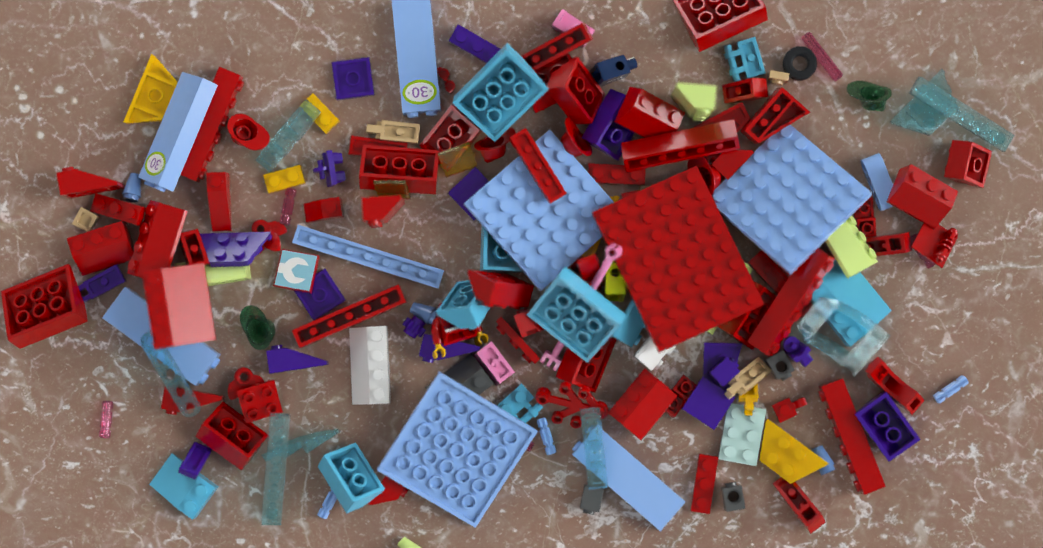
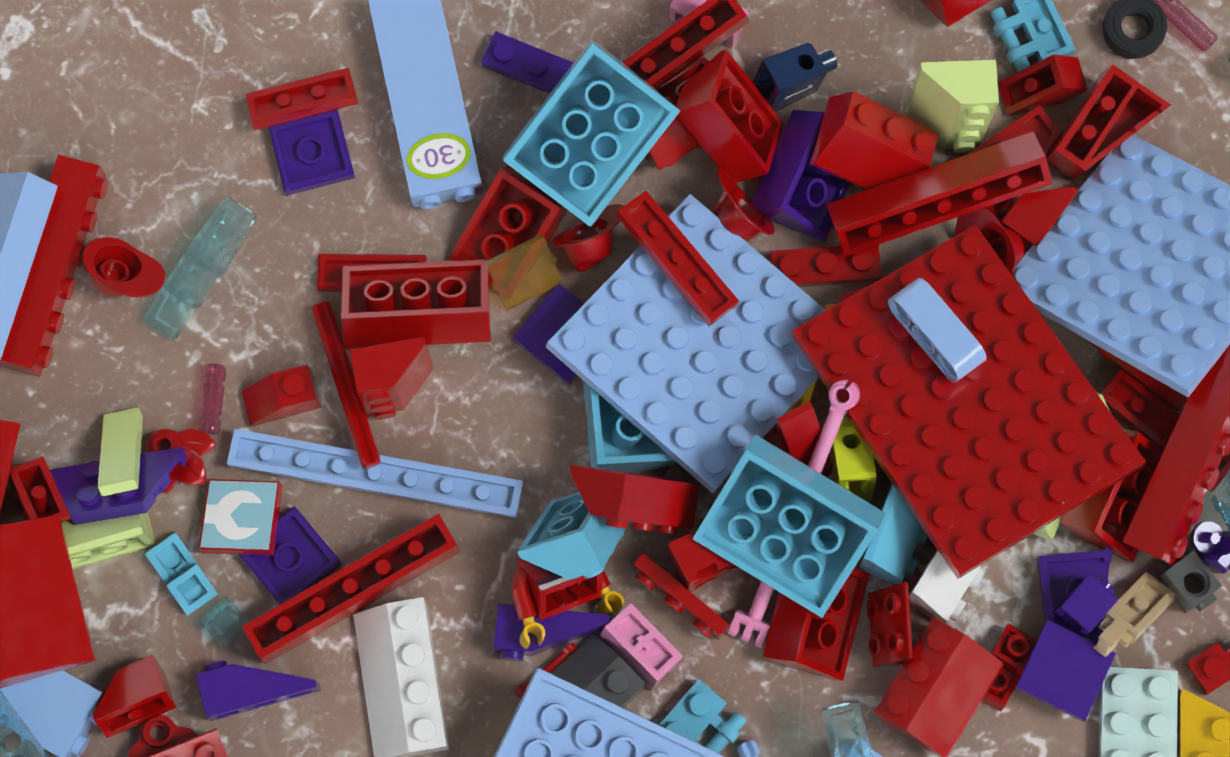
camera: 10 degrees left, 10 degrees down
(219, 200) = (79, 400): red slope -> none
(233, 357) = (134, 697): none -> red slope
(238, 230) = (120, 451): none -> yellowish green tile
(257, 327) = (174, 631): clear green piece -> none
(263, 295) = (181, 573): none -> medium azure slope
(284, 179) = (203, 347): yellow plate -> none
(284, 324) = (225, 622): none -> clear light blue tile
(326, 119) = (268, 231): yellow plate -> none
(328, 169) = (280, 321): dark purple hips -> none
(350, 49) = (301, 98): none -> red plate
(357, 207) = (345, 385): none -> red axle
(390, 188) = (408, 329): piece -> none
(395, 131) = (400, 236): tan hinge -> none
(414, 327) = (478, 595): dark purple gear -> none
(423, 312) = (493, 566): medium blue cone -> none
(431, 377) = (567, 651): none -> red hinge
(444, 75) = (481, 126): red piece -> none
(543, 396) = (806, 705): red plant -> none
(622, 369) = (890, 625): none -> red hinge
(666, 222) = (937, 329): none -> light blue beam
(748, 399) = (1143, 654): yellow plate -> none
(778, 78) = (1099, 54): tan plate -> none

